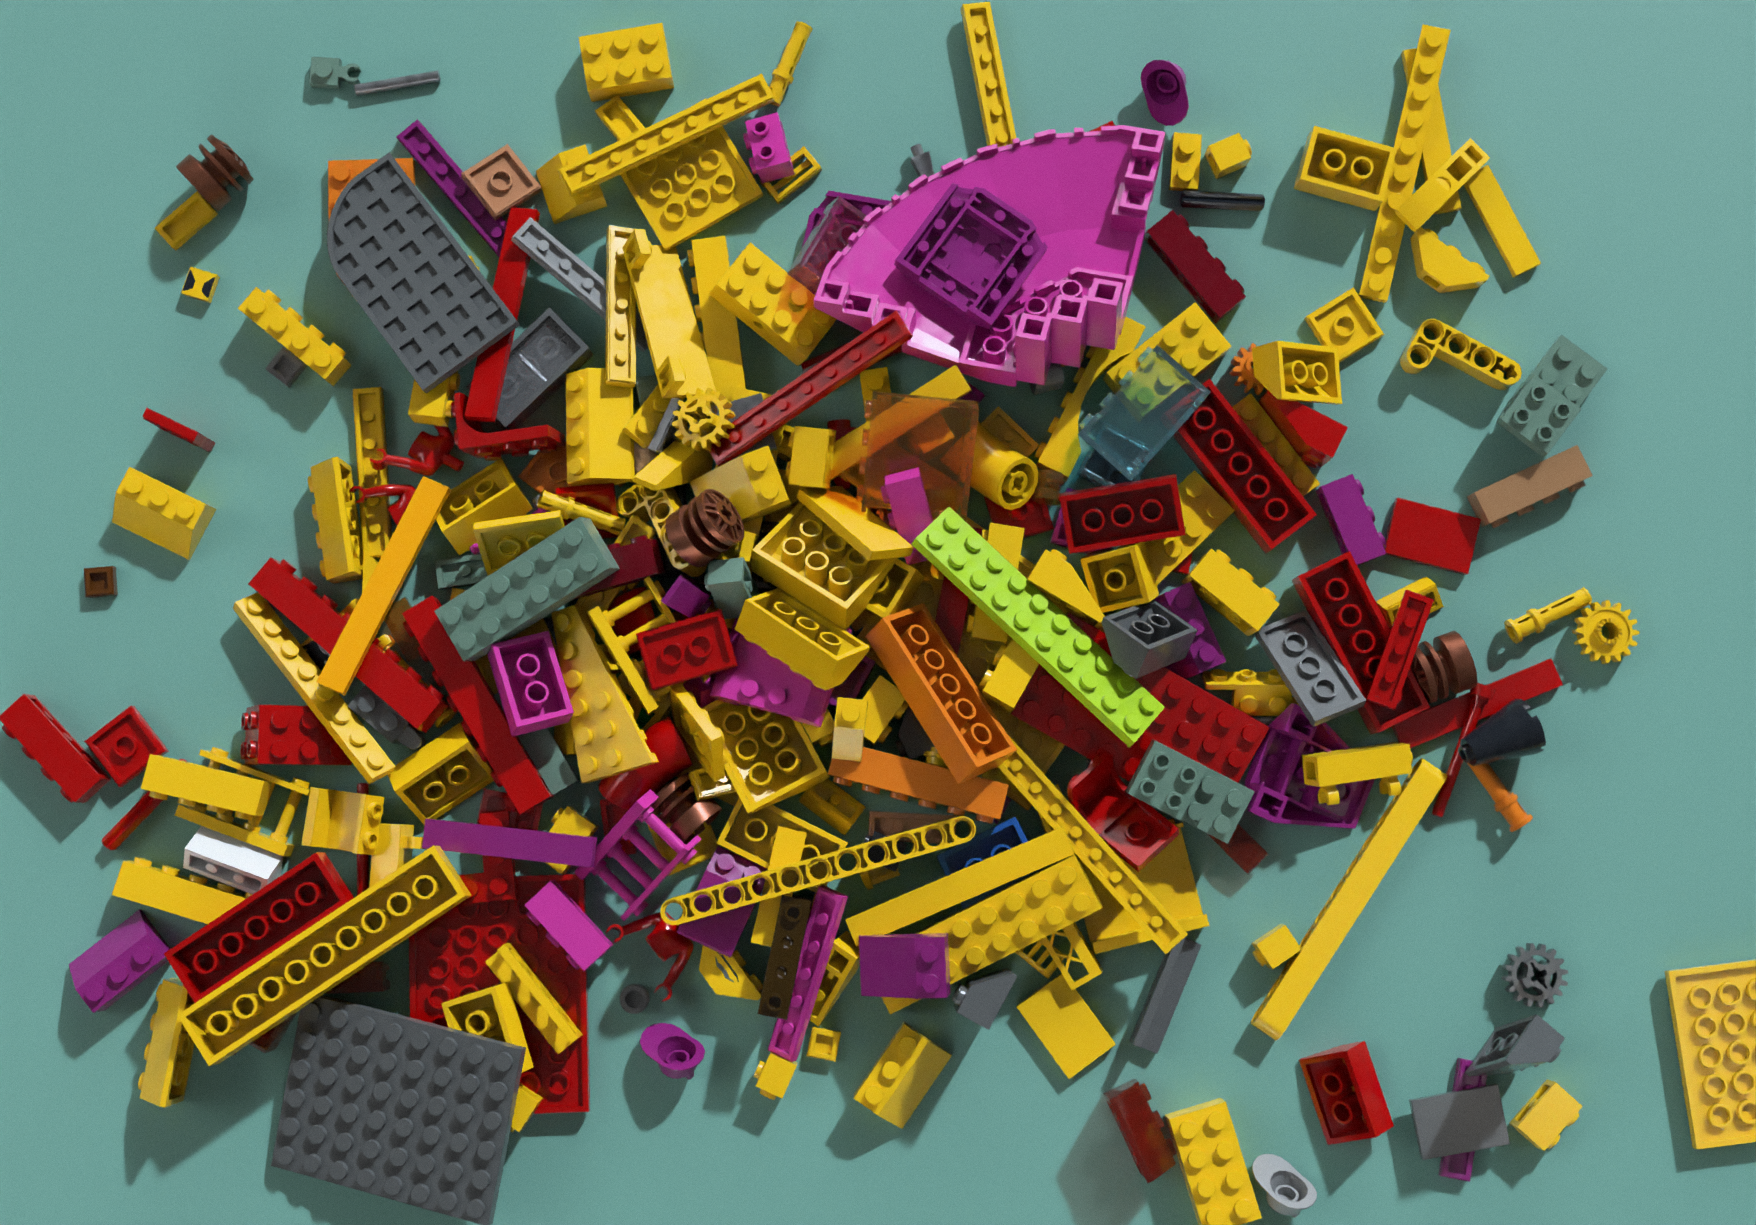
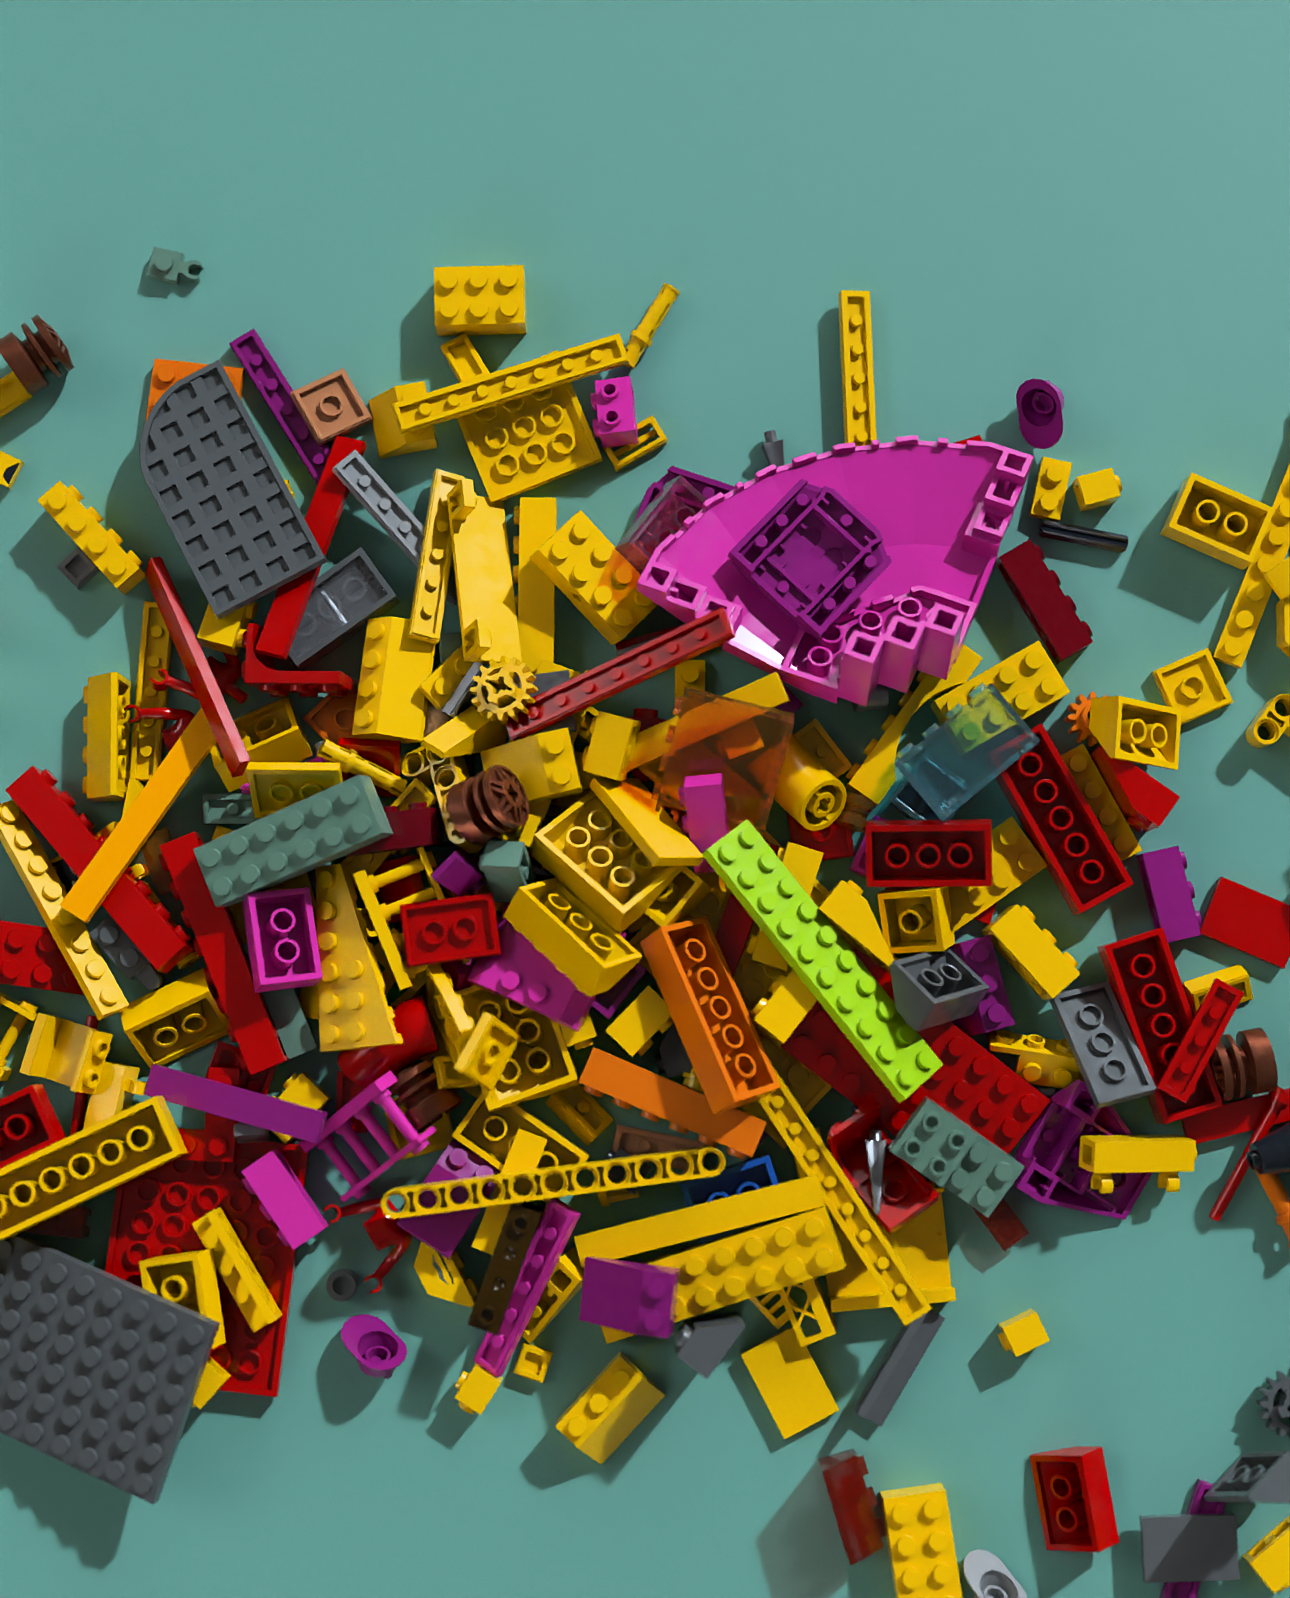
camera: 10 degrees right, 0 degrees up
(397, 83) = (238, 287): flat silver bar -> none
(412, 441) = (197, 667): none -> red tile
(527, 869) = (249, 1134): none -> flat silver tile
(738, 757) = (487, 1051): none -> yellow tile
(849, 729) = (608, 1039): yellow slope -> none
(1114, 801) = (875, 1154): none -> flat silver piece
(1348, 899) = (1107, 1294): yellow beam -> none

